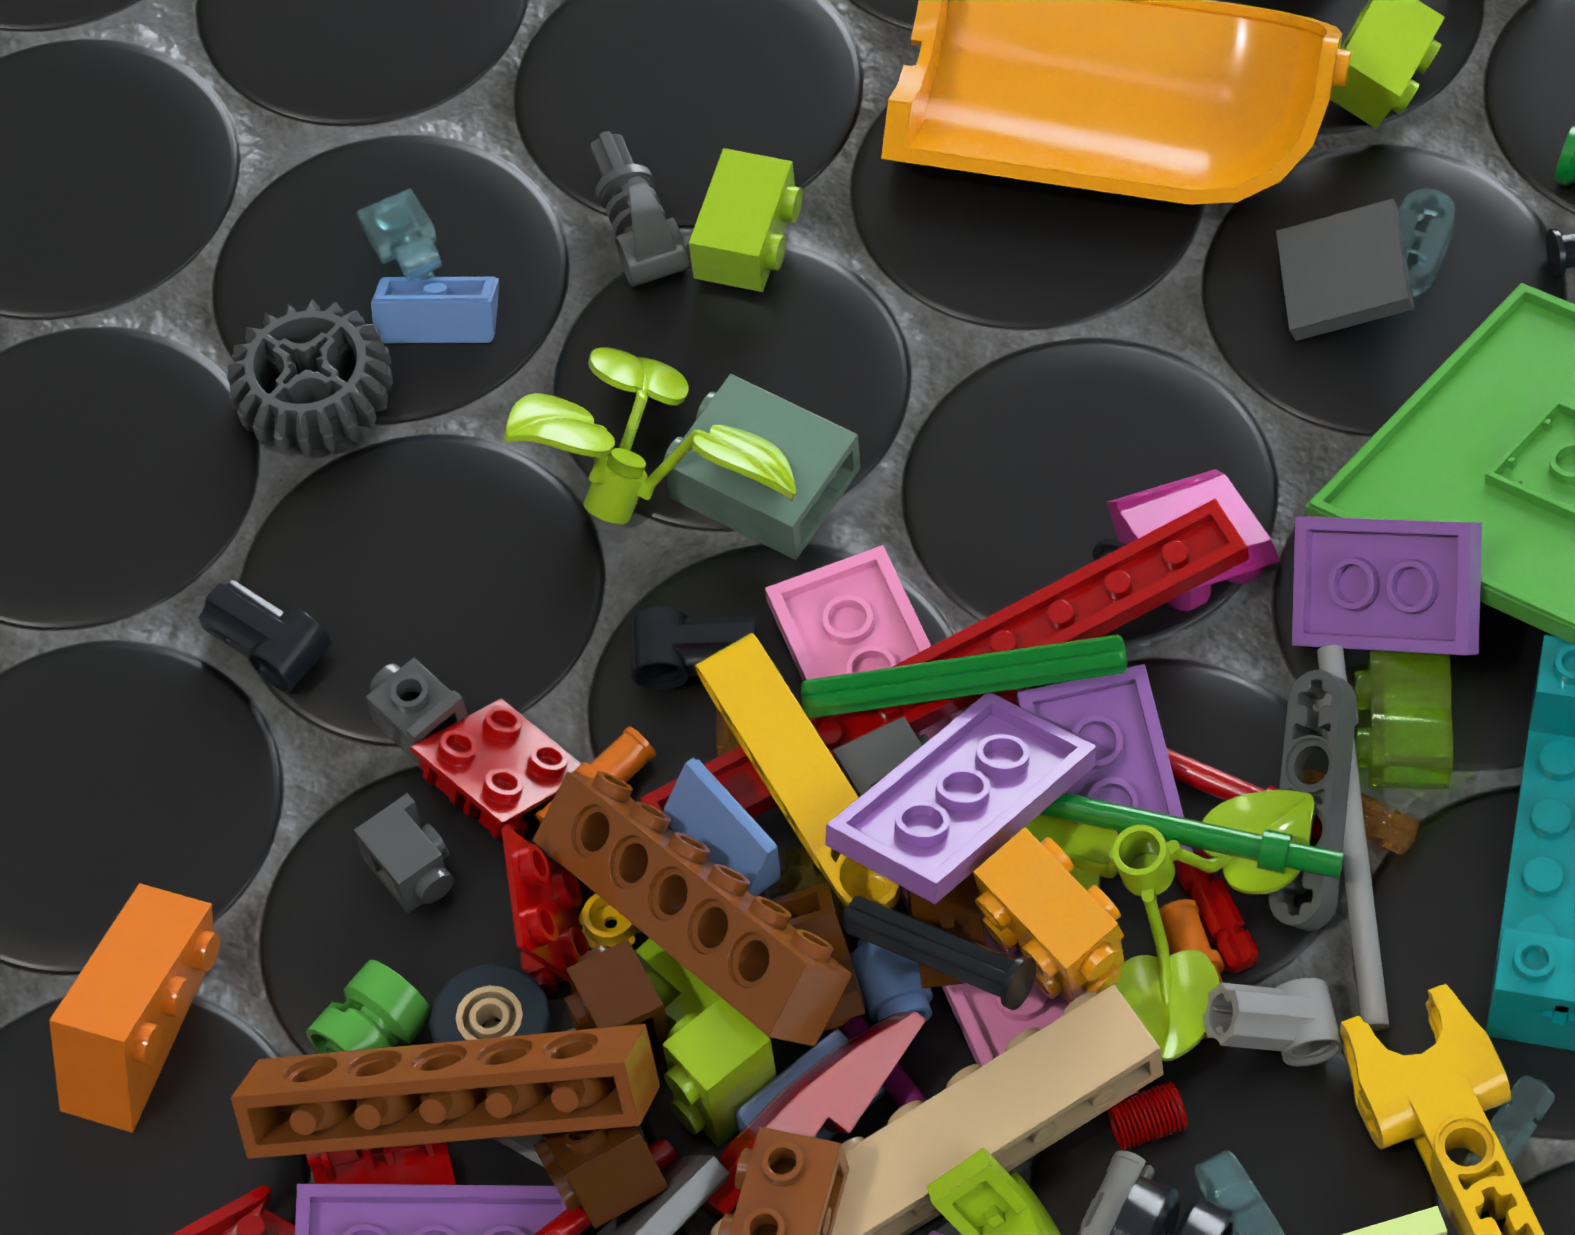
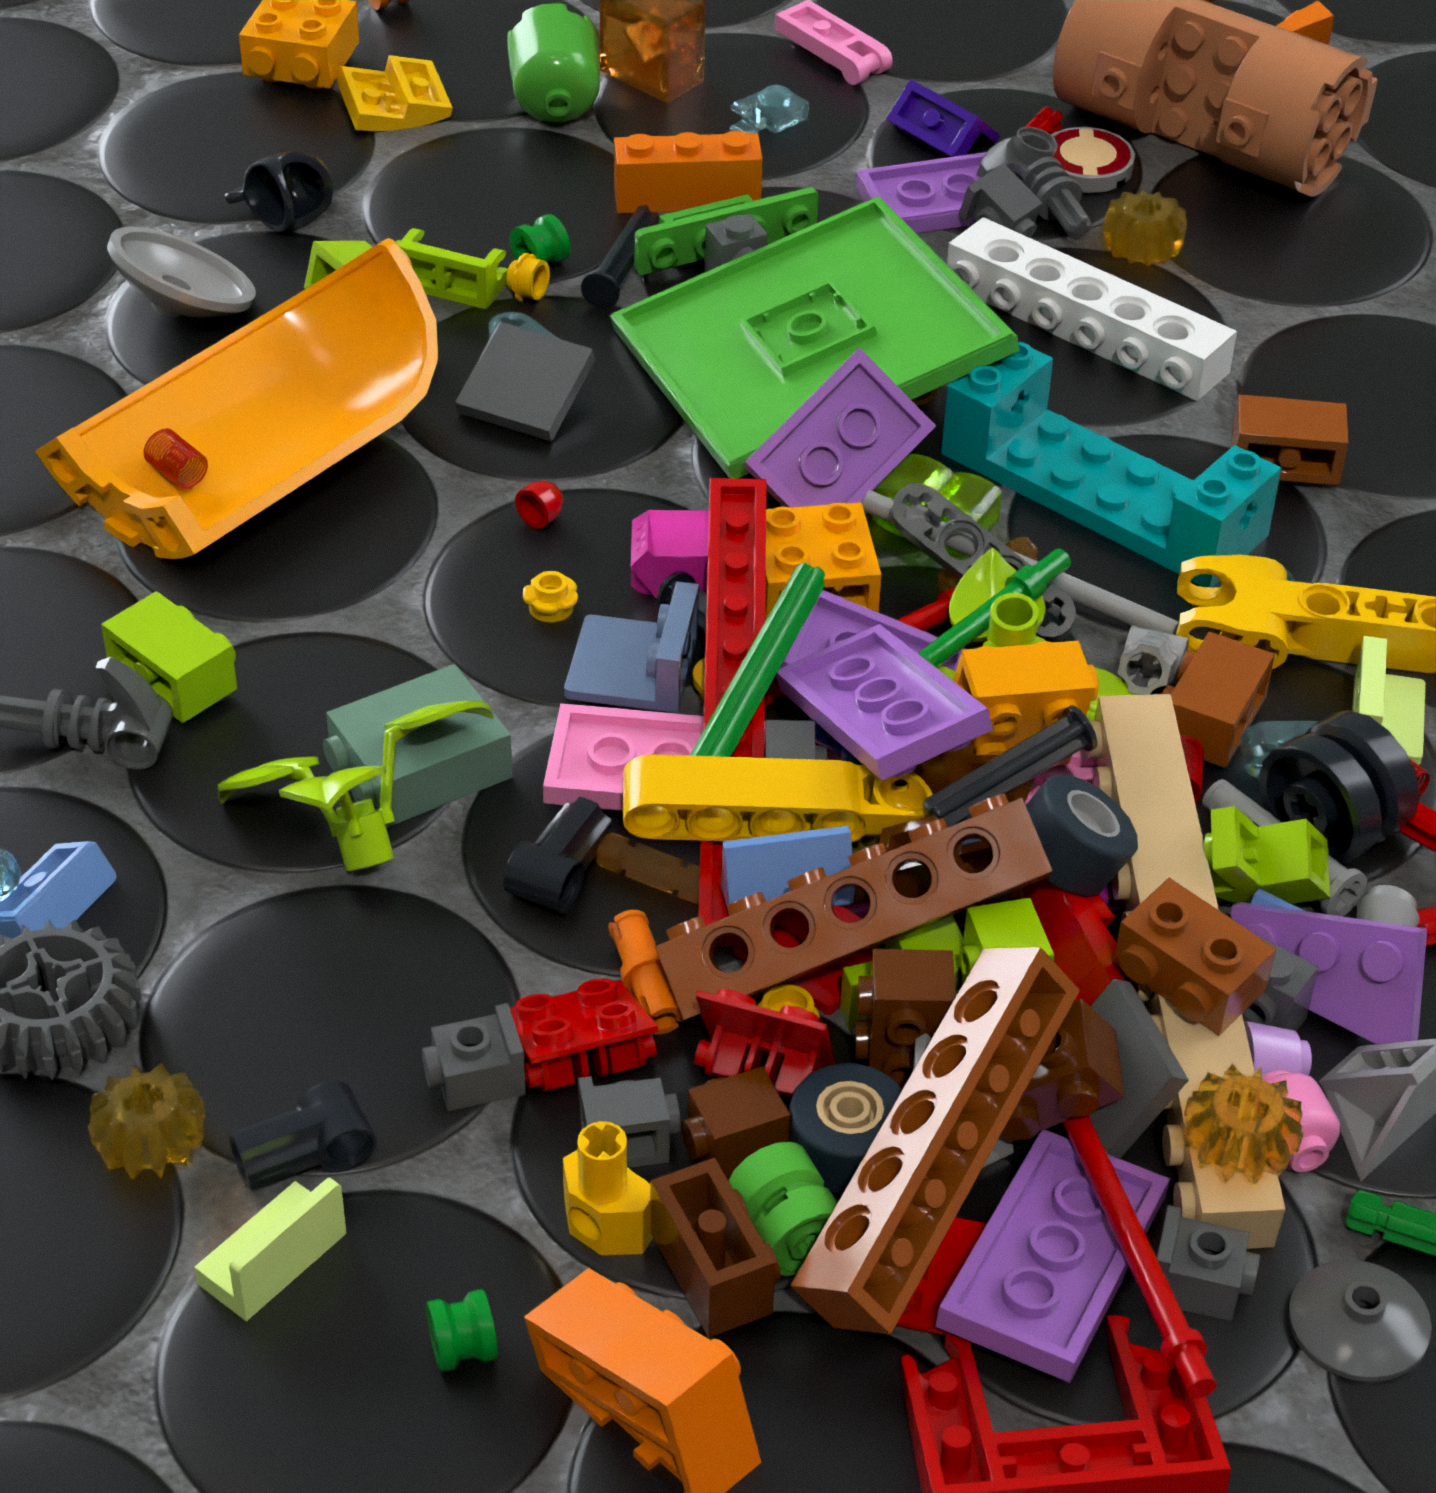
camera: 70 degrees left, 15 degrees down
(127, 849) = (462, 1331): none -> green wheel
(151, 676) = (273, 1247): none -> yellowish green panel
(221, 518) = (146, 1121): none -> clear yellow gear
(288, 983) = (713, 1247): none -> reddish brown brick
(307, 878) = (602, 1197): none -> yellow piece
(449, 934) = (734, 1118): none -> reddish brown brick
(912, 1044) = (1081, 834): none -> black wheel
(991, 563) = (636, 659): none -> sand blue bracket
(1009, 66) = (172, 475): none -> red piece
(1052, 473) = (551, 596): none -> yellow plate
(1175, 381) = (539, 503): none -> red hinge
(1223, 653) = (826, 537): none -> light orange brick
(1258, 1102) = (1220, 694): none -> dark orange brick
(1489, 109) = (454, 274): none -> lime hinge
(1528, 182) = (528, 277): none -> yellow plate

